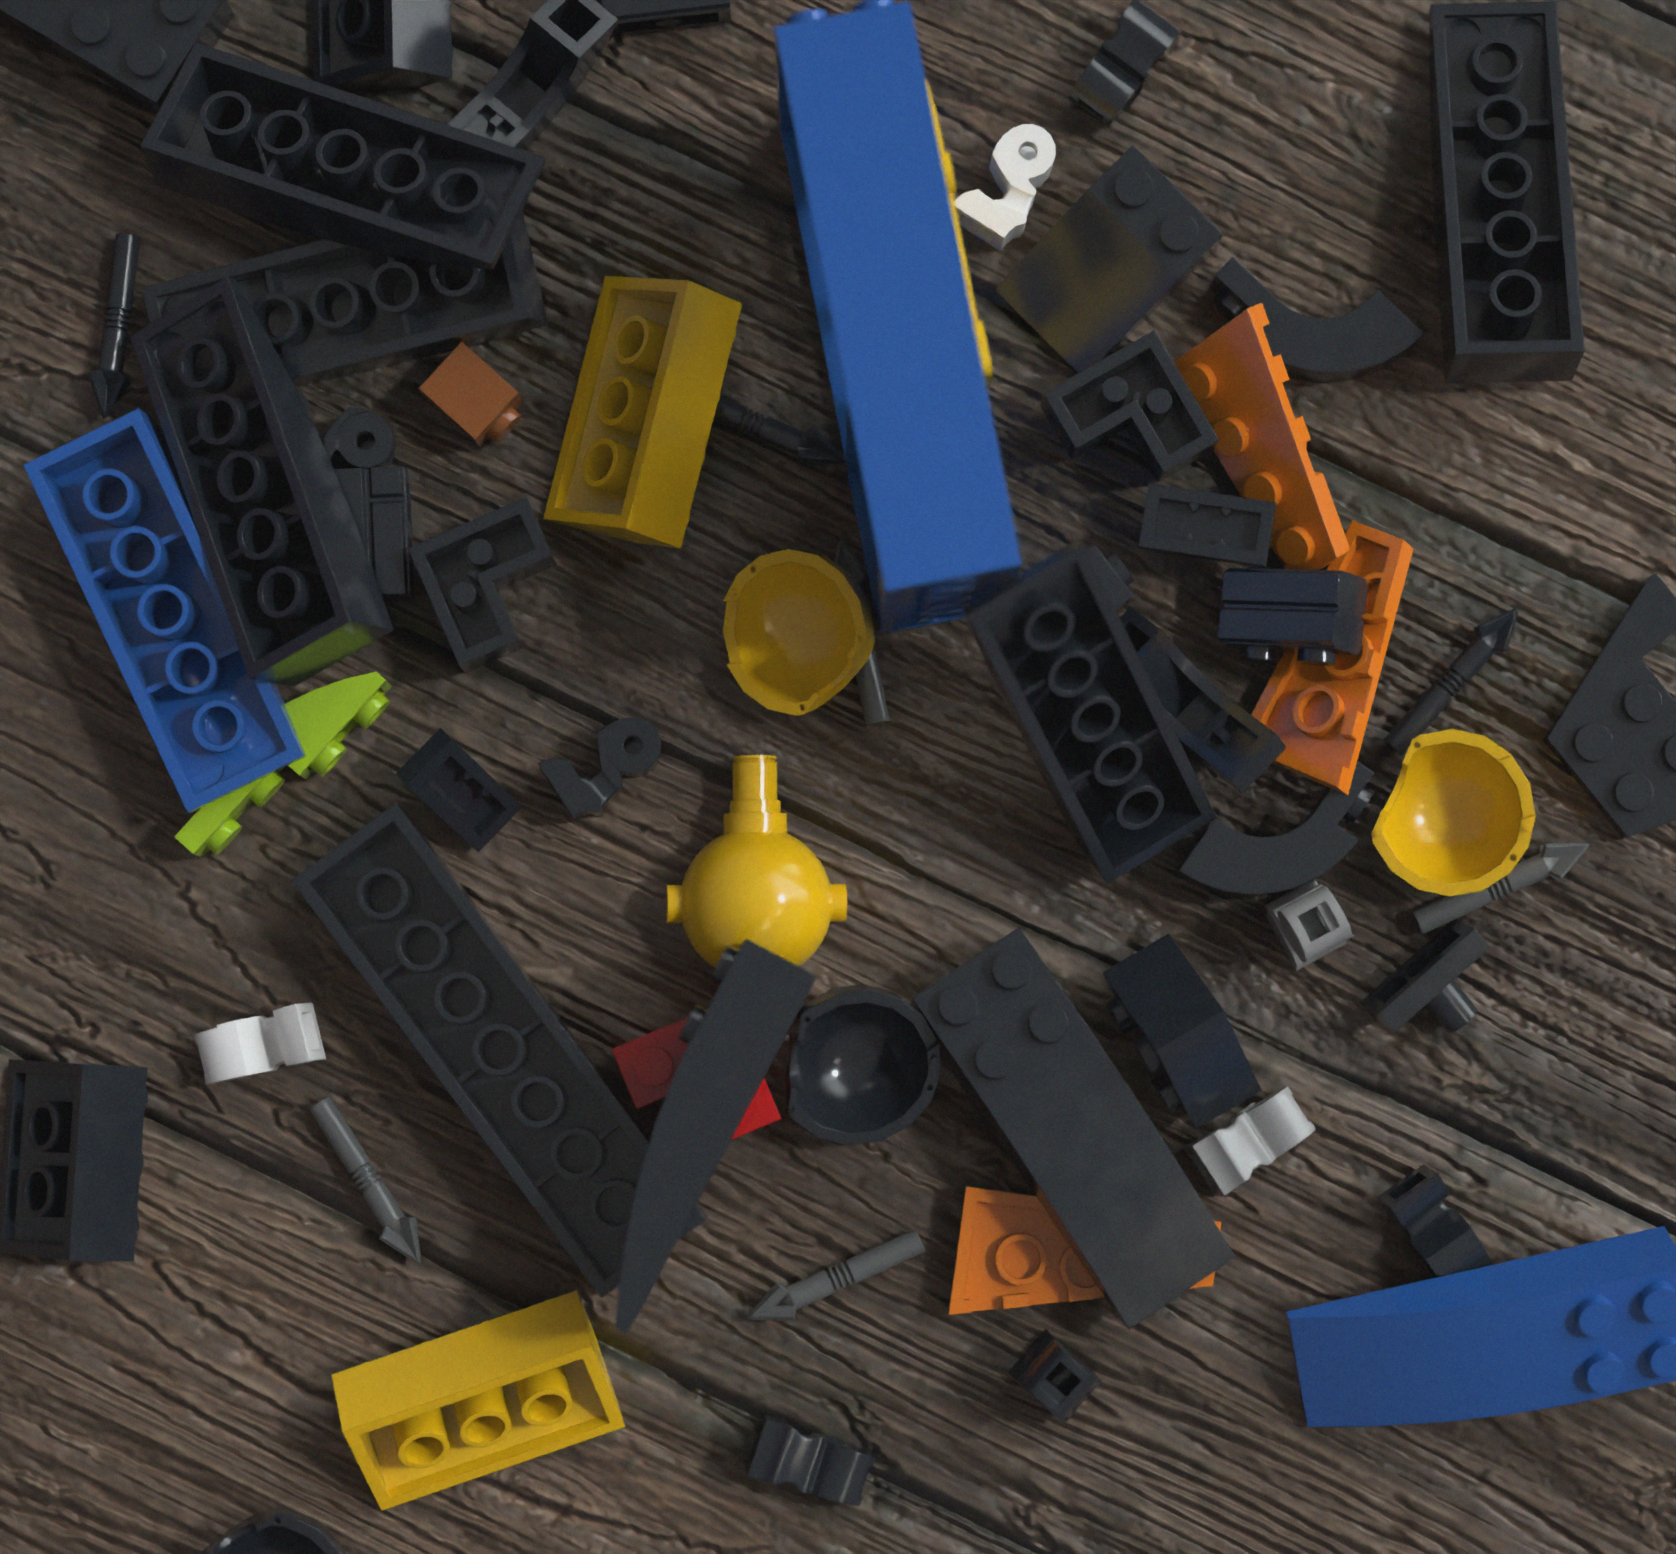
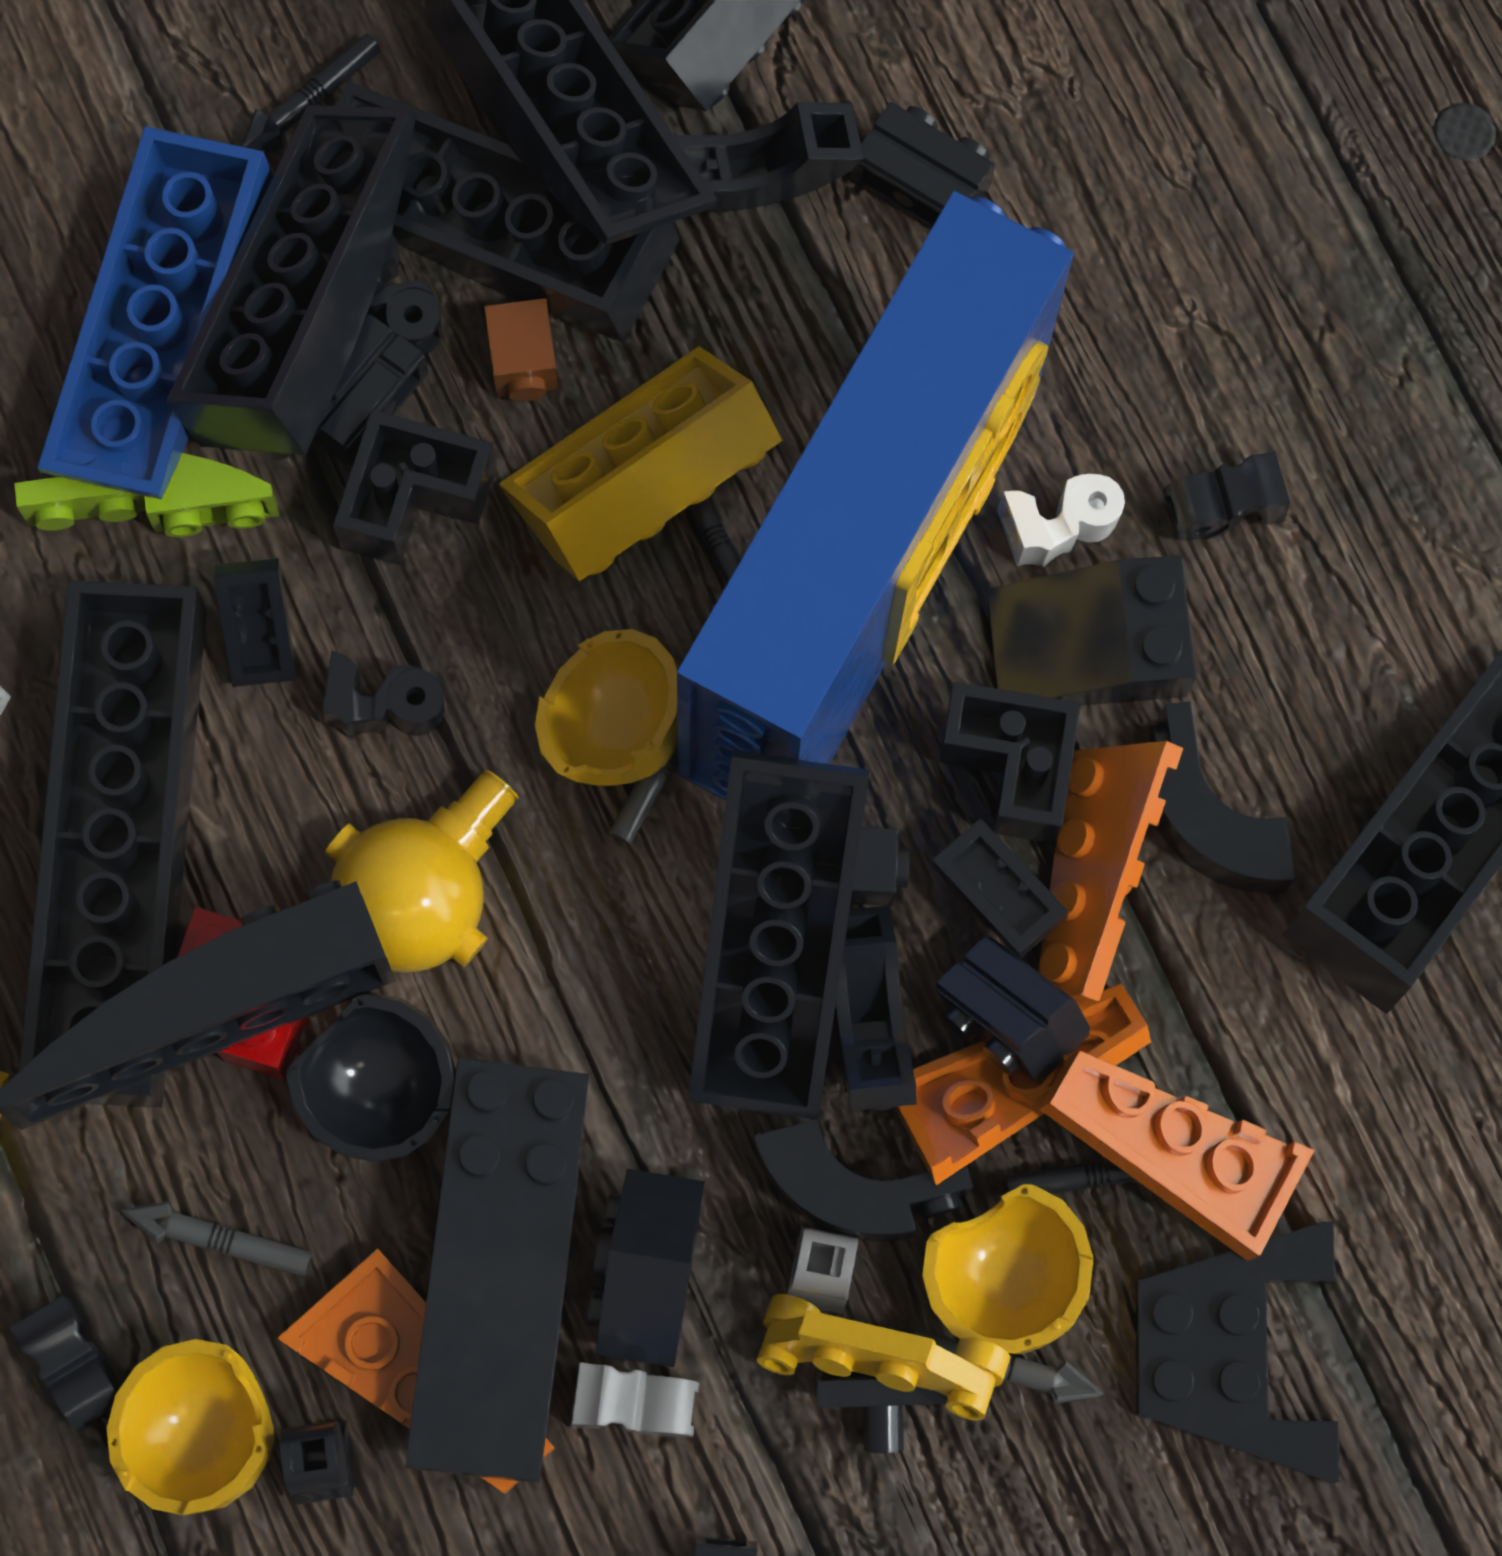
camera: 40 degrees right, 10 degrees down
(947, 1435) = (190, 1428): none -> yellow cylinder
(1434, 950) = (896, 1358): none -> yellow plate
(1523, 612) = (1199, 1162): none -> orange wing

